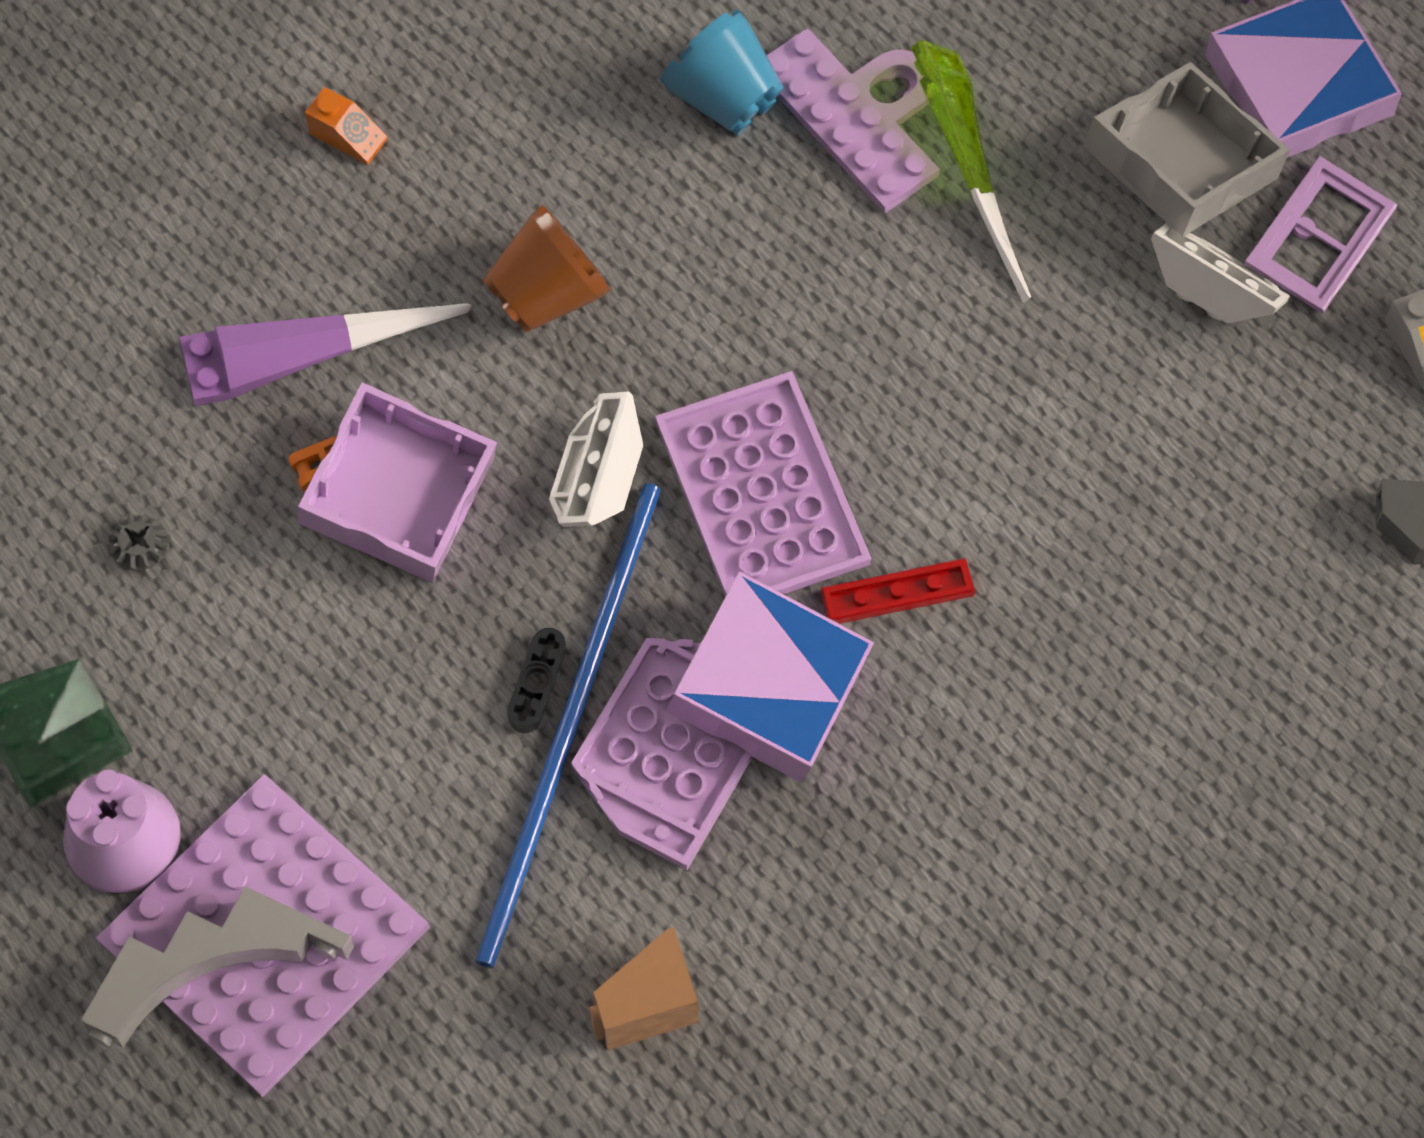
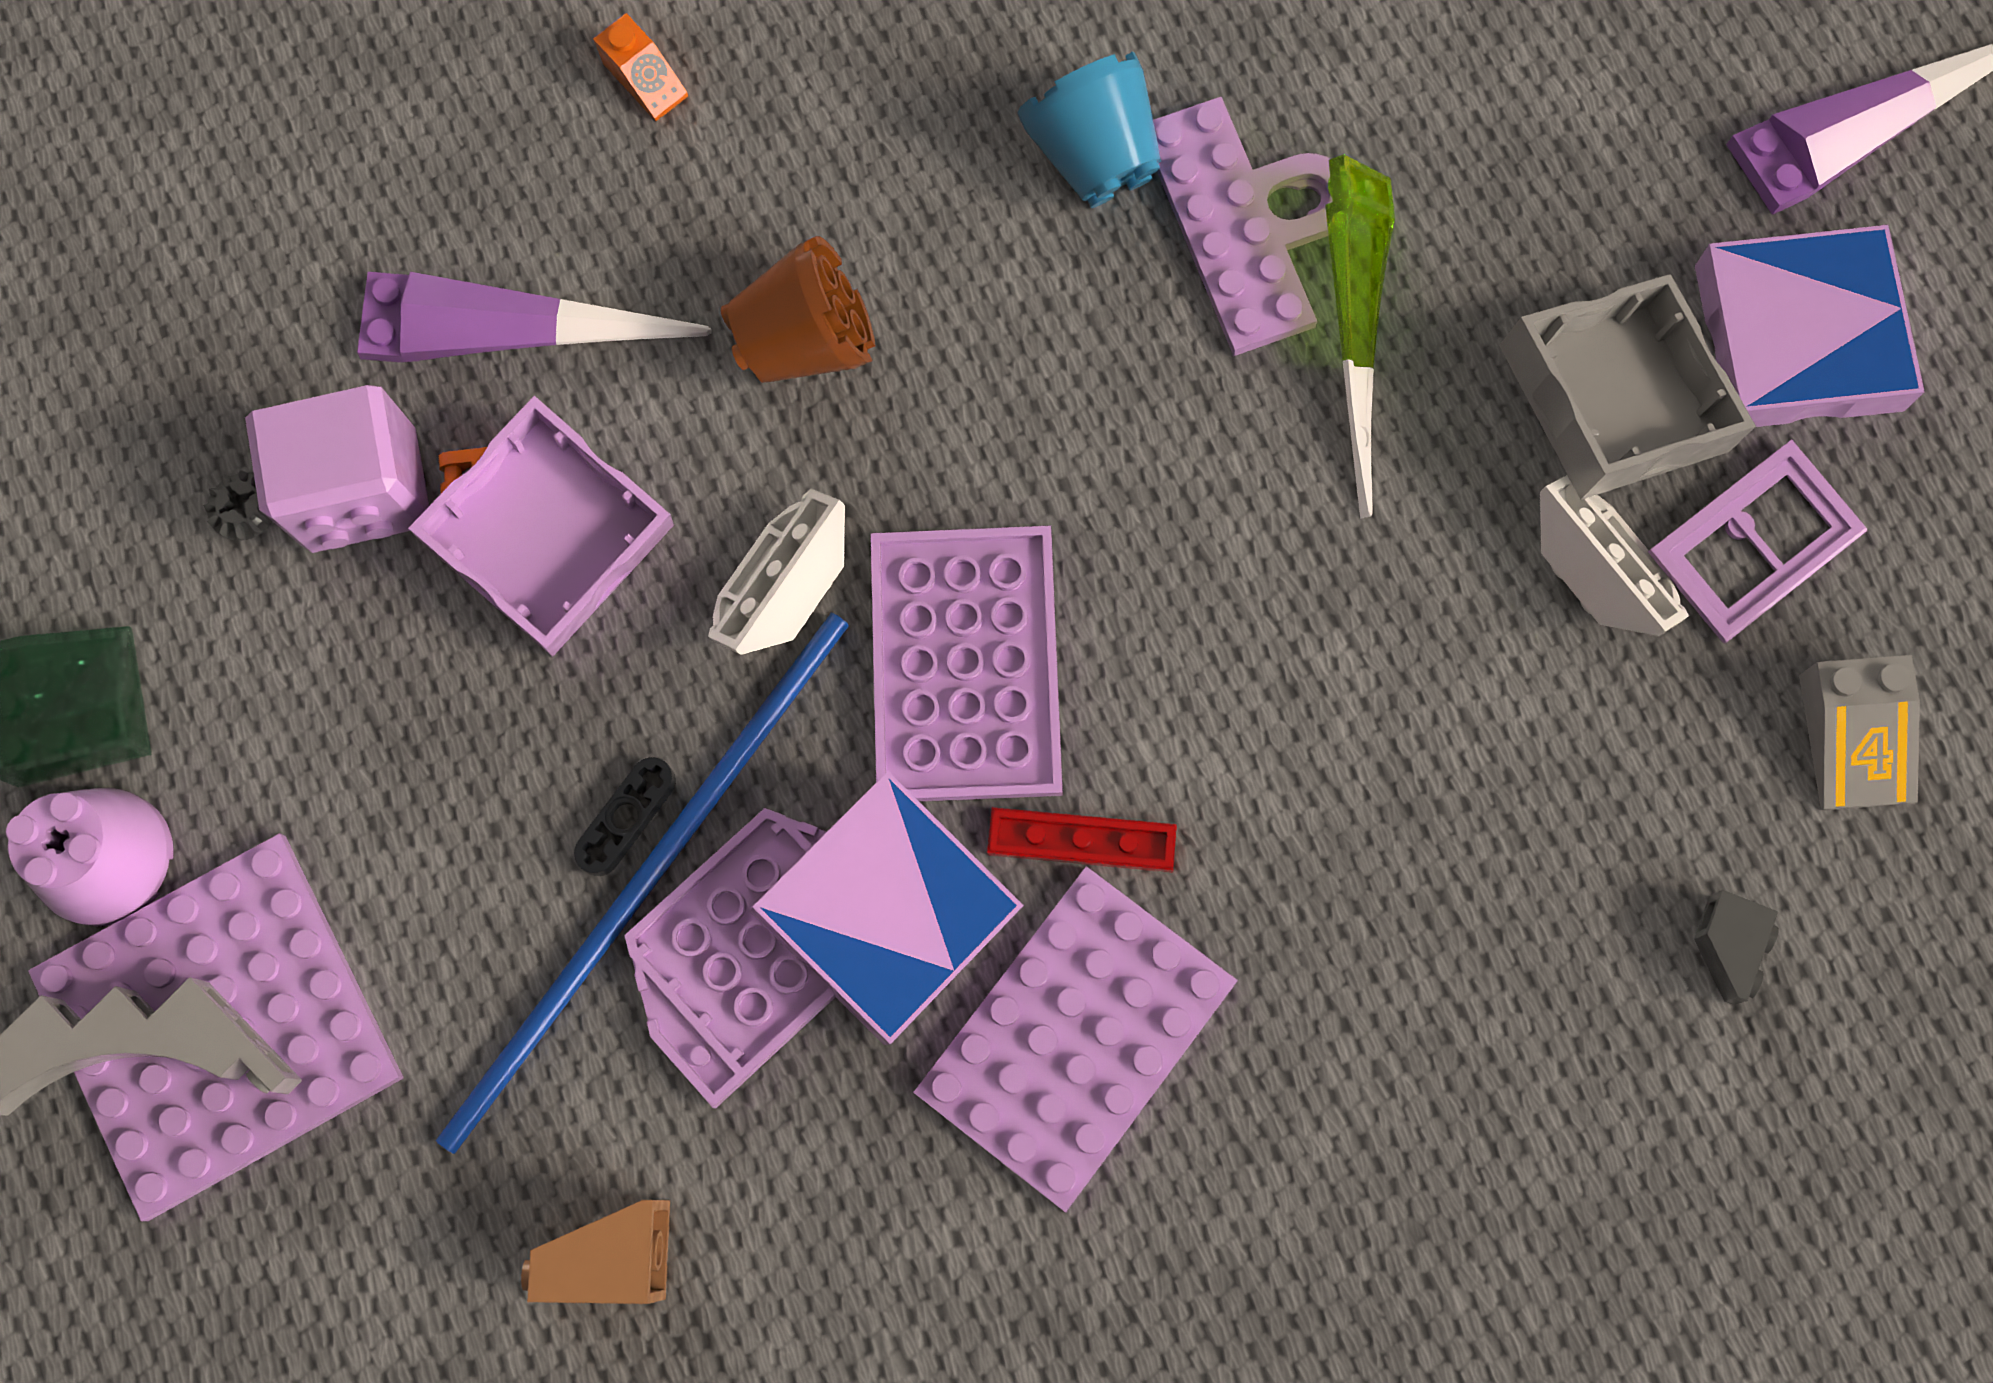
camera: 25 degrees right, 10 degrees up
(223, 481) = (337, 468): none -> lavender plate
(944, 735) = (1075, 1038): none -> lavender plate

